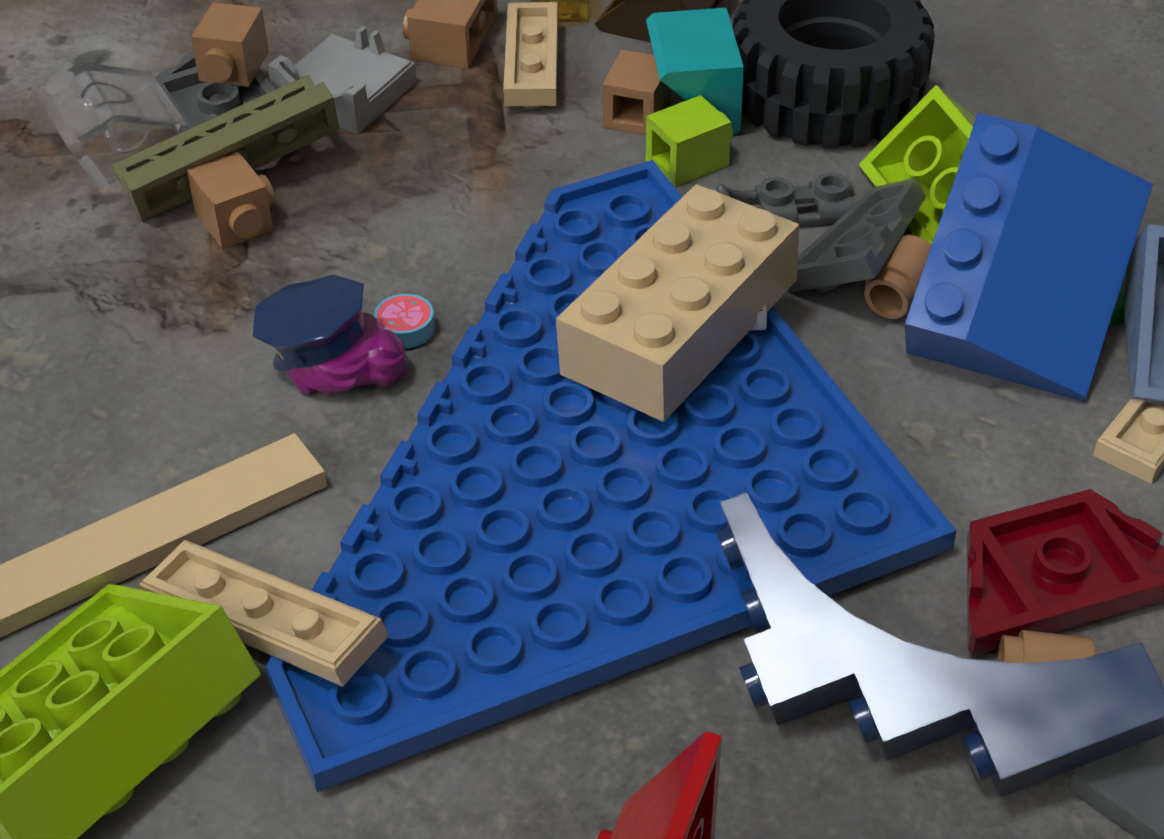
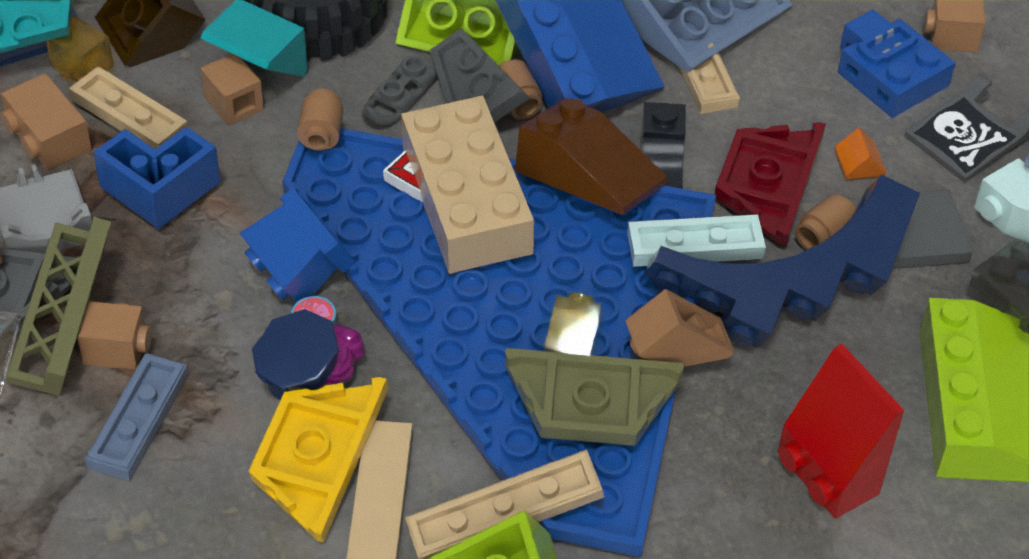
camera: 55 degrees left, 5 degrees up
(156, 279) = (137, 417): none -> sand blue tile
(213, 416) = (315, 450): none -> yellow wing
(458, 111) = (157, 180): none -> blue brick
(465, 244) = (295, 248): none -> blue hips
(492, 590) = (591, 394): none -> olive wing
(574, 507) = (573, 324): none -> clear yellow bracket
(649, 156) = (320, 120): none -> medium nougat brick
(665, 609) = (677, 332): none -> medium nougat slope
(688, 140) = (295, 87): lime brick -> none
(846, 546) = (701, 238): none -> light aqua plate
(849, 375) = (586, 157): none -> reddish brown slope
(974, 441) = (664, 138): none -> black arch

